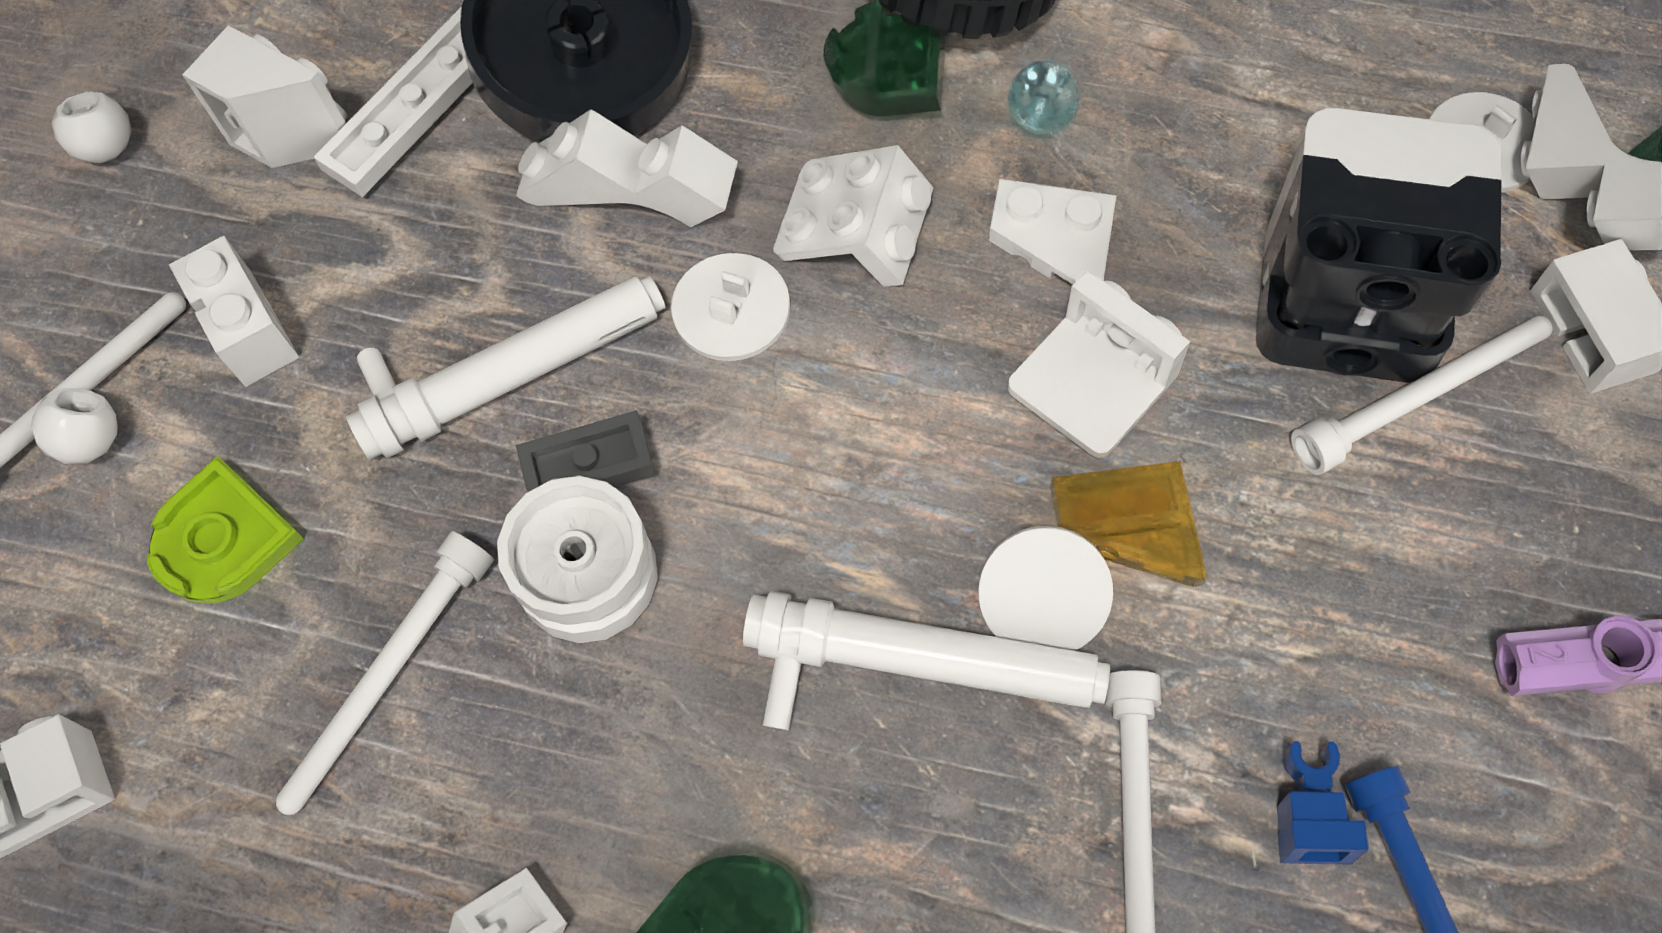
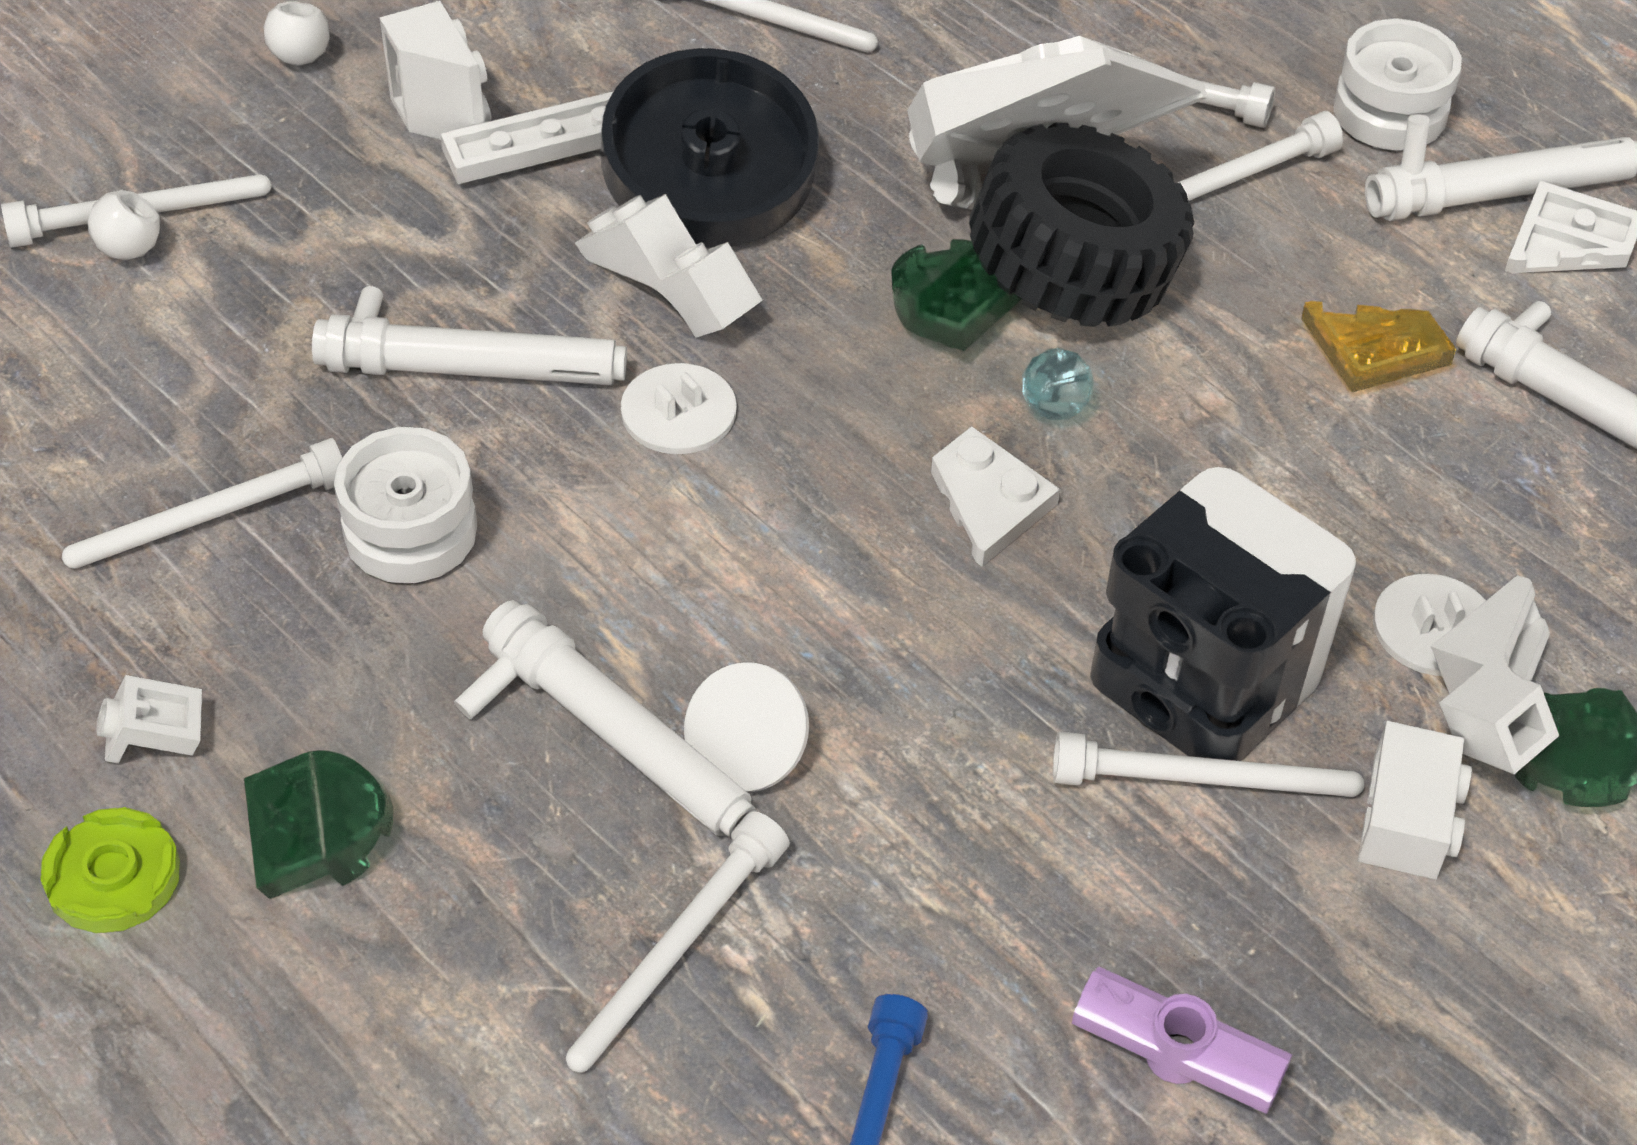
camera: 25 degrees right, 15 degrees down
(216, 537) = (164, 357): lime tile -> none
(233, 311) = (297, 209): white piece -> none
(604, 450) = (493, 450): dark grey plate -> none
(858, 206) = (838, 391): white bracket -> none
(1100, 366) = (932, 603): white bracket -> none
(1134, 518) = (866, 722): clear yellow wing -> none
(1315, 819) = (822, 1008): blue piece -> none

